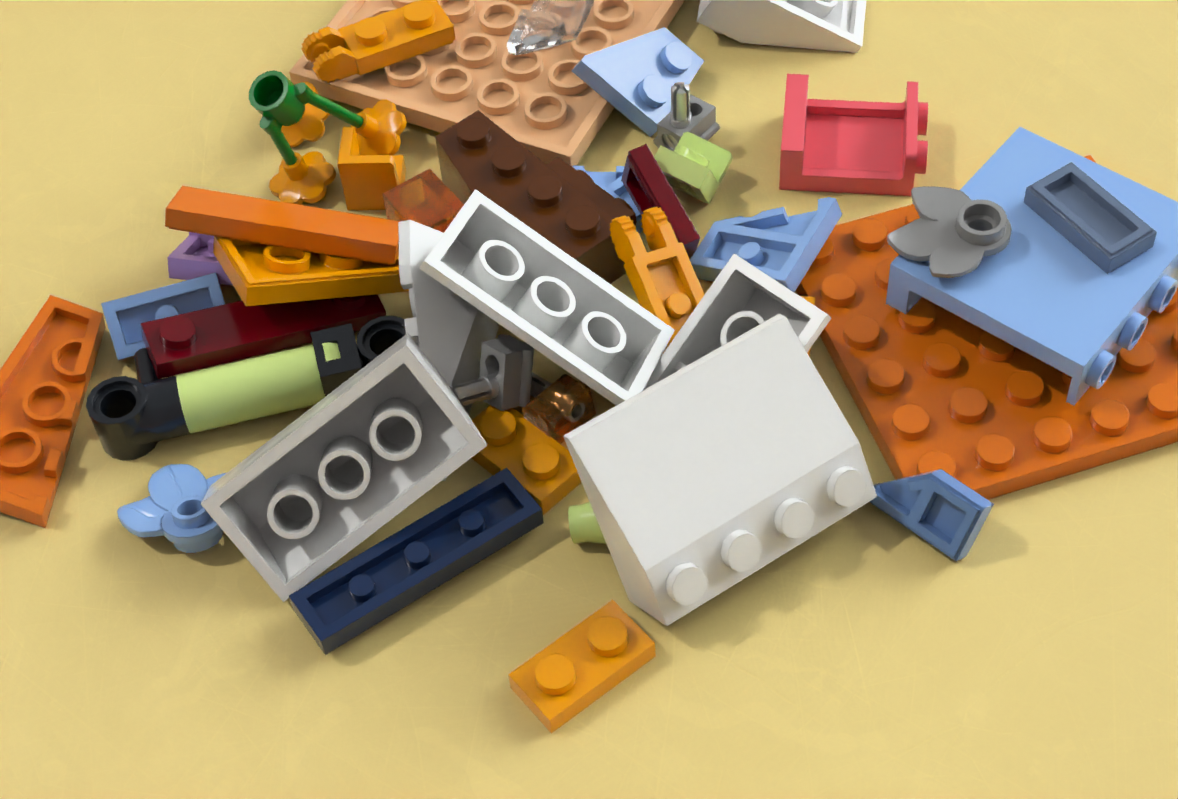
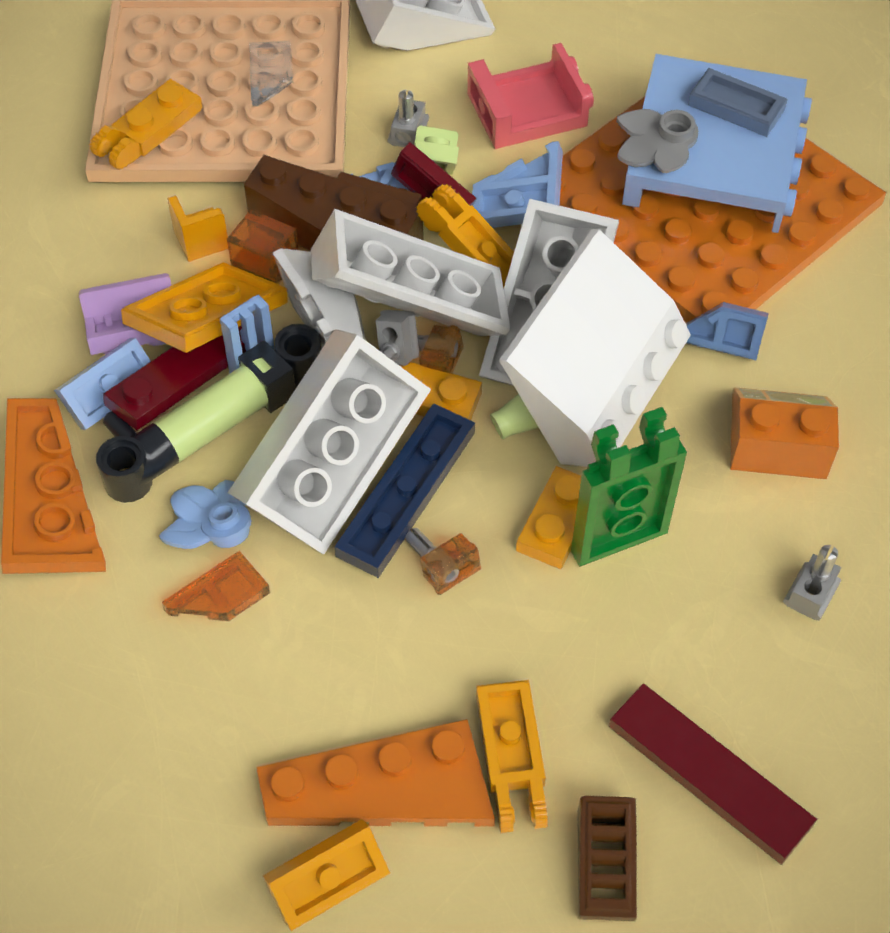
camera: 30 degrees left, 5 degrees up
(143, 599) = (220, 591): none -> clear orange tile
(284, 225) = (172, 284): orange tile -> none
(297, 114) = (113, 199): light orange plant -> none
(324, 280) = (255, 328): none -> light blue tile
(411, 668) = (447, 563): none -> clear orange piece
(639, 75) = (360, 96): light blue wing -> none
(640, 665) = (627, 491): none -> green tile
(930, 666) = (783, 433): none -> orange slope

